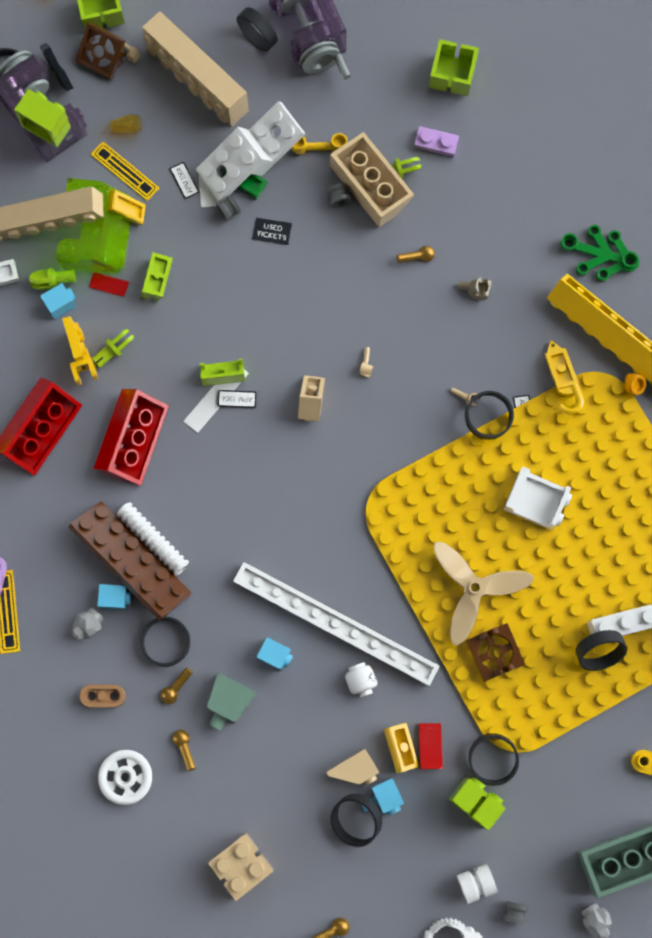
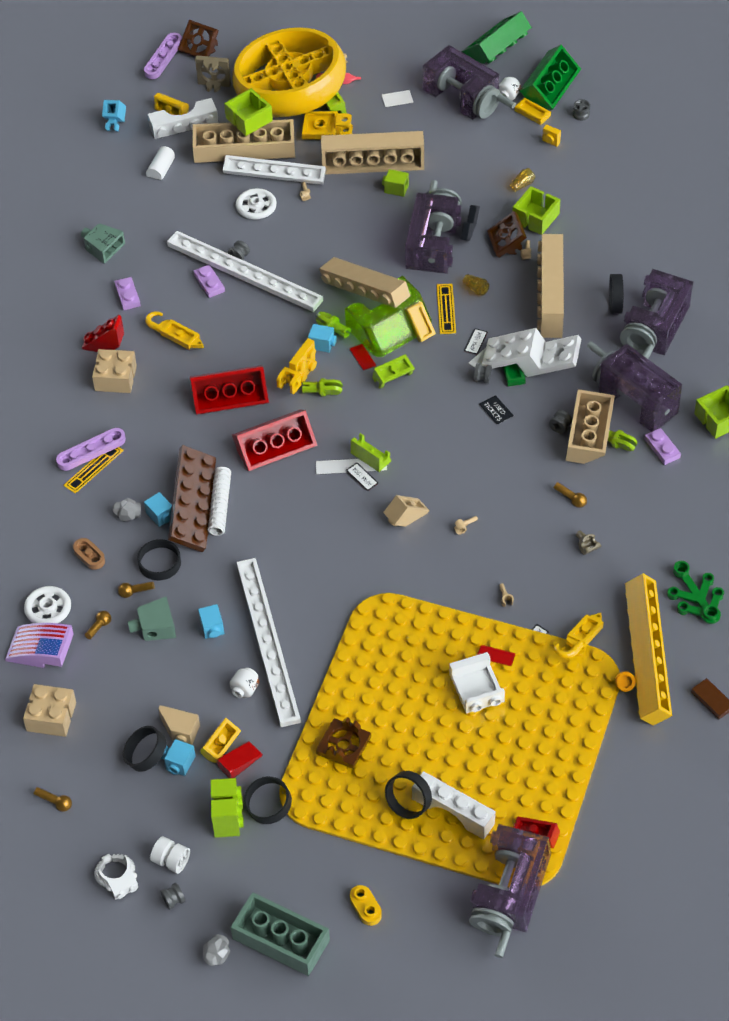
camera: 50 degrees right, 25 degrees down
(43, 117) = (421, 227): lime piece -> none
(161, 818) = (40, 644): none -> lavender slope
(337, 141) = (569, 378): yellow bar -> none
(370, 101) = (641, 380): none -> clear purple piece
(492, 585) = (375, 695): tan piece -> none
(495, 394) = (504, 595): black tyre -> none
(518, 457) = (498, 655): none -> red sticker

